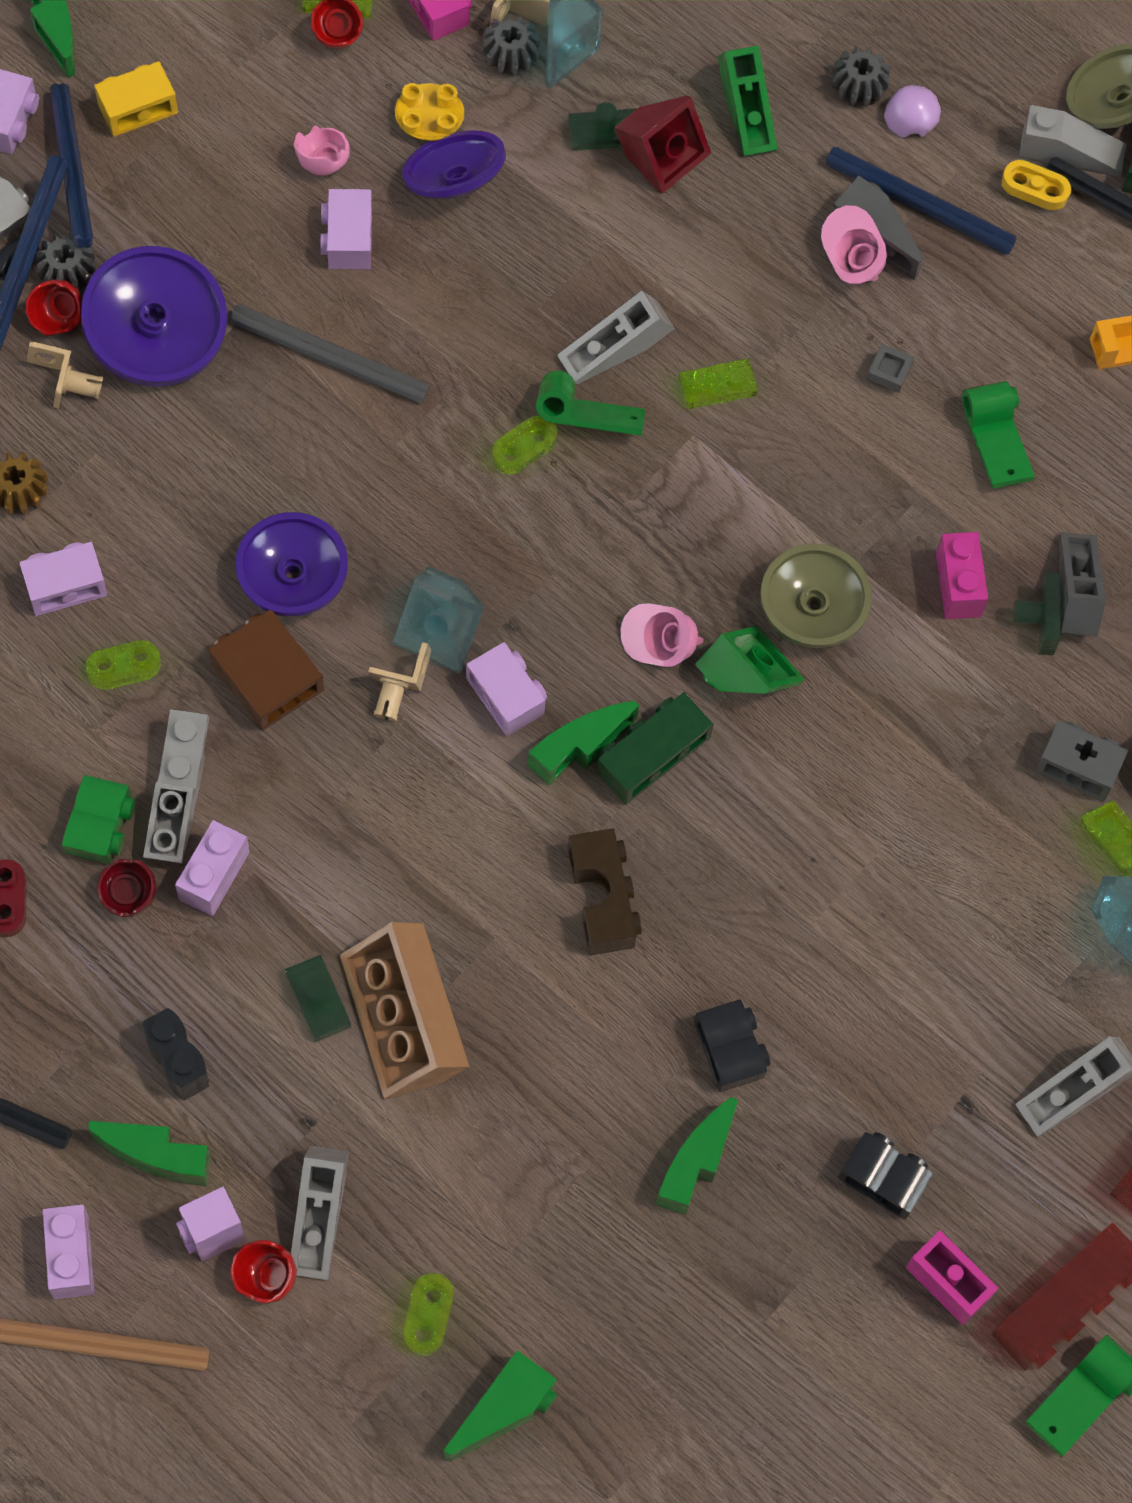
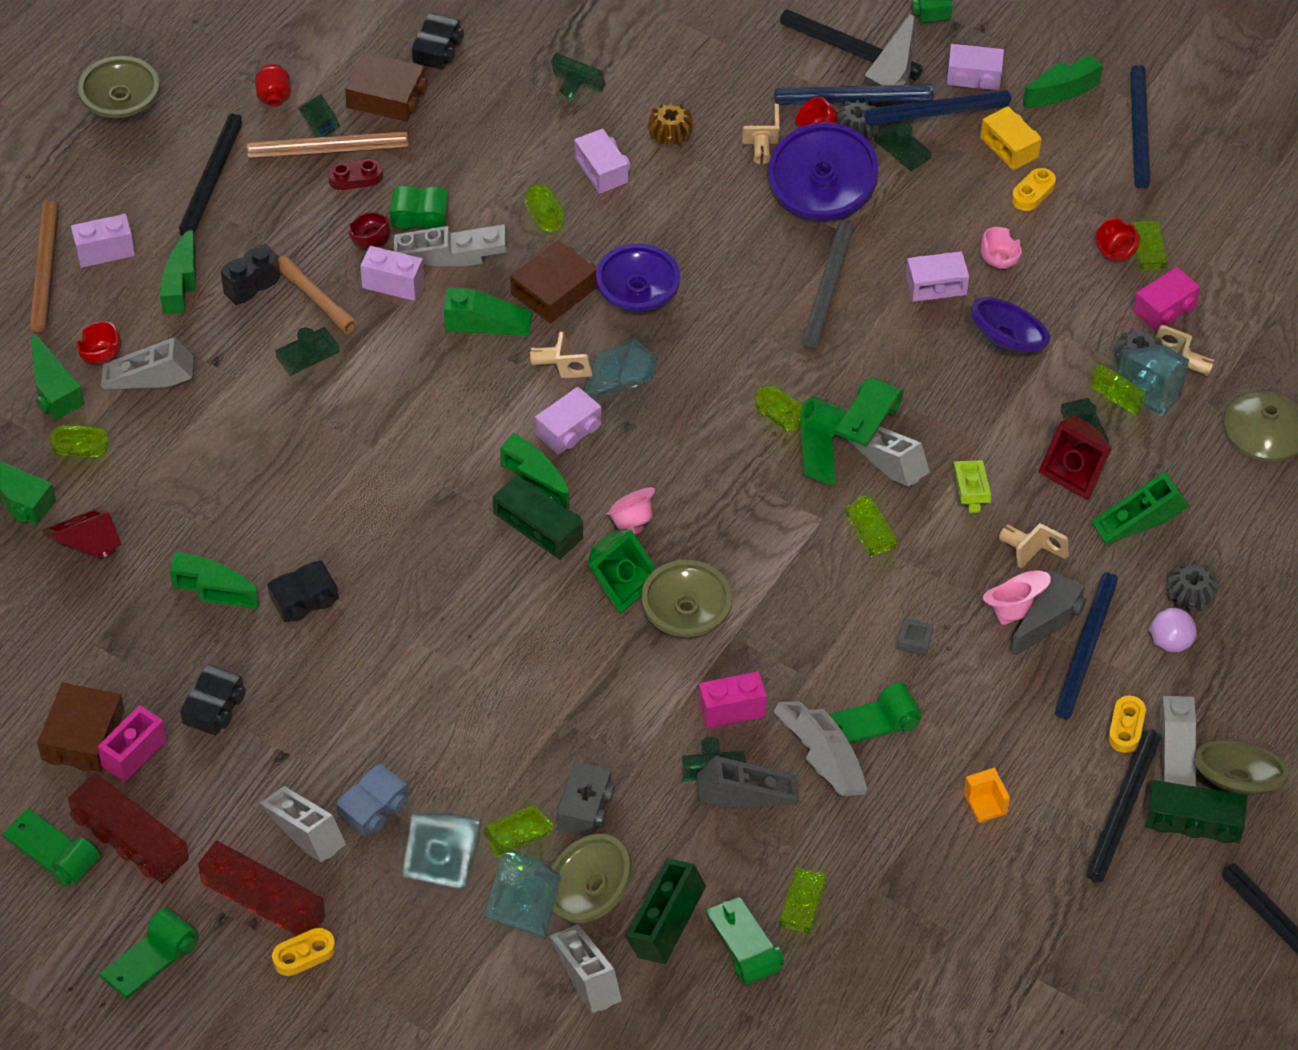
camera: 85 degrees right, 15 degrees down
(118, 221) = (900, 144): none -> clear green tile
(210, 1225) = (126, 305): lavender brick -> none
(217, 94) = (1038, 185): none -> yellow plate
(259, 953) = (334, 311): none -> medium nougat piece
(305, 765) = (481, 313): none -> green slope
(319, 1343) = (55, 386): none -> green slope
(403, 1009) = (304, 396): medium nougat slope -> none
(429, 110) = (1061, 311): yellow dish -> none
(557, 341) = (869, 410): none -> green door
(564, 79) = (1118, 389): none -> clear neon green plate
(592, 1318) = (88, 532): none -> dark red slope
(599, 859) = (395, 509): dark brown arch -> none
(681, 259) = (972, 484): none -> lime plate
(776, 221) = (1029, 544): none -> tan bracket
(910, 1345) = (78, 724): none -> reddish brown brick
(1046, 483) = (829, 748): none -> light grey slope
(1057, 998) = (373, 800): none -> sand blue brick

